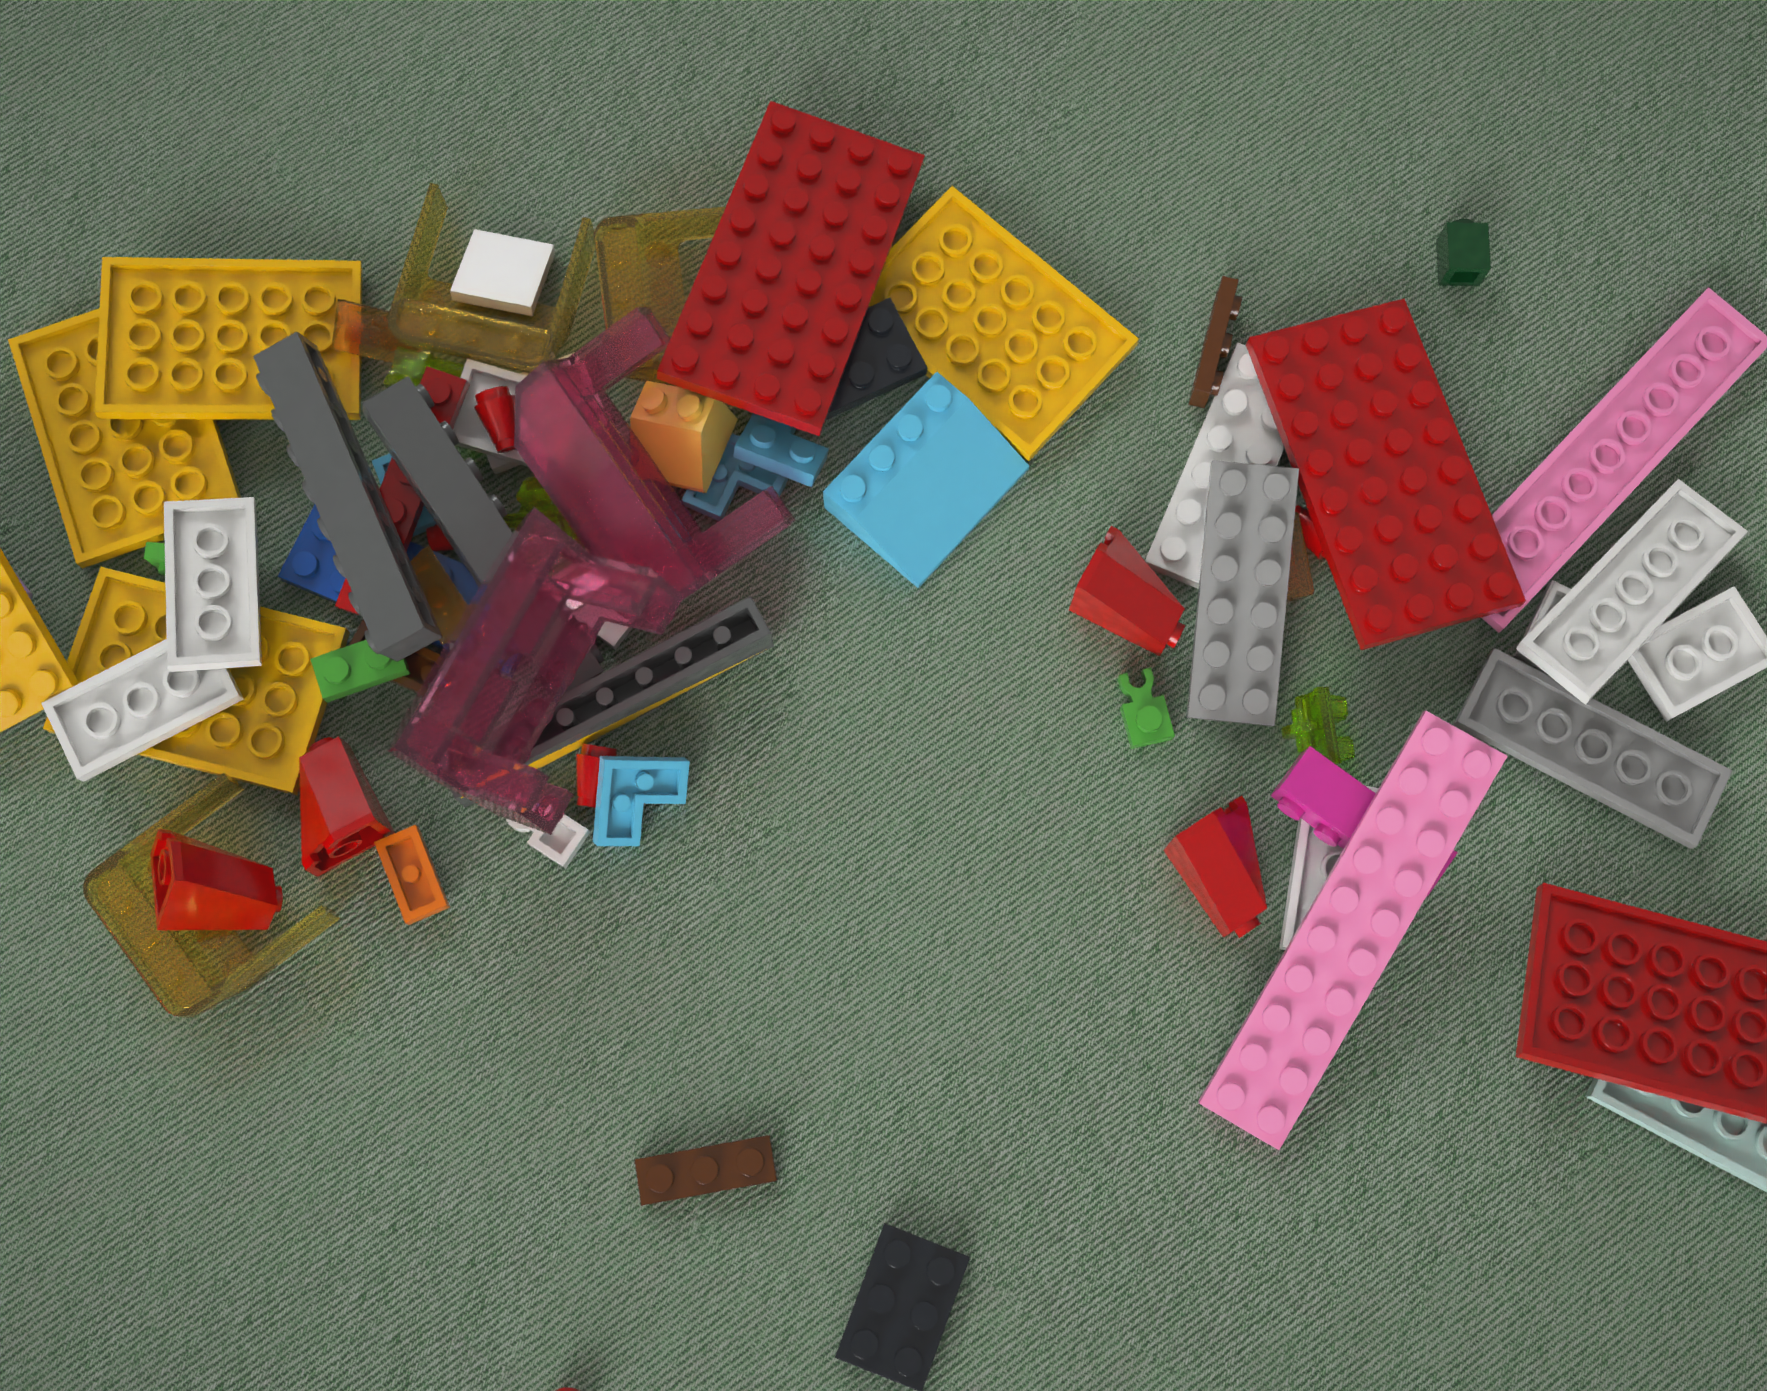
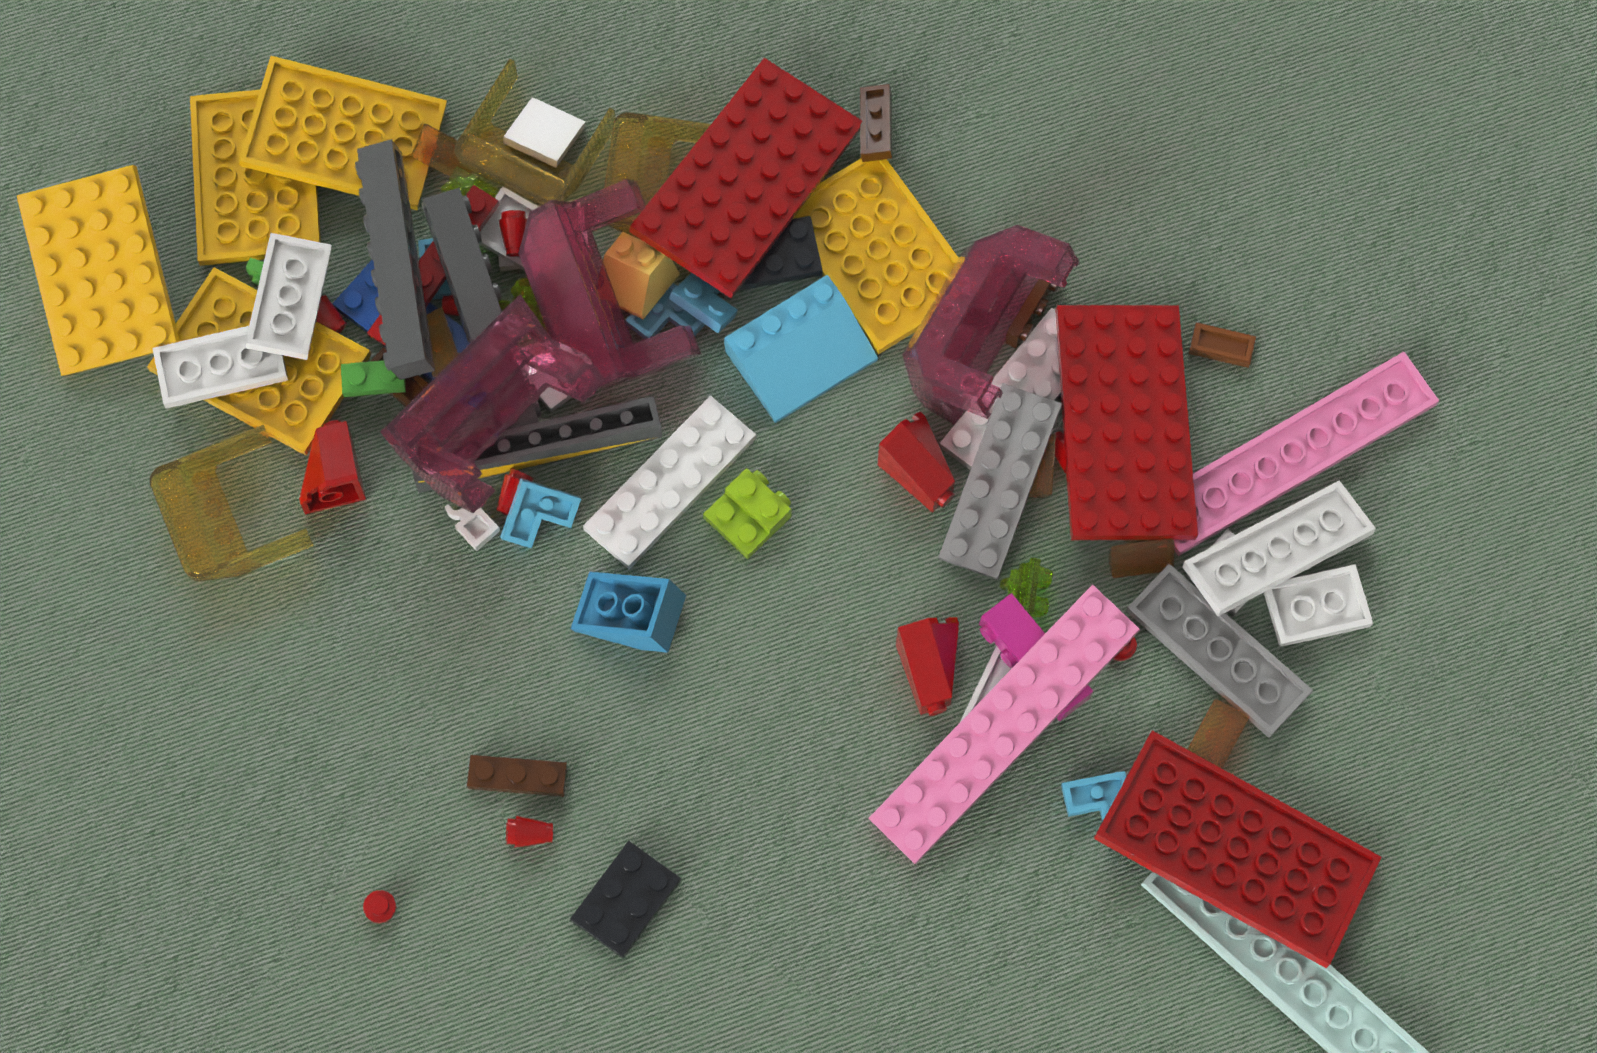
camera: 15 degrees right, 5 degrees down
(209, 887) = (233, 498): red slope -> none
(277, 594) = (329, 316): none -> red cone
(412, 874) = (370, 528): orange plate -> none
(743, 1248) = (527, 832): none -> red cone
(796, 899) = (630, 610): none -> dark azure slope
(800, 706) = (669, 482): none -> white plate
(918, 720) = (749, 512): none -> lime plate
(941, 153) = (876, 124): none -> plate
(1145, 378) = (972, 317): none -> clear pink wedge
(1145, 716) = (908, 549): bright green plate -> none
(1453, 649) = (1141, 558): none -> clear orange slope
(1463, 253) = (1233, 284): dark green brick -> none
(1470, 337) = (1222, 345): none -> dark orange tile
(1489, 989) = (1092, 793): none -> medium azure plate
(1627, 862) = (1218, 733): none -> clear orange slope

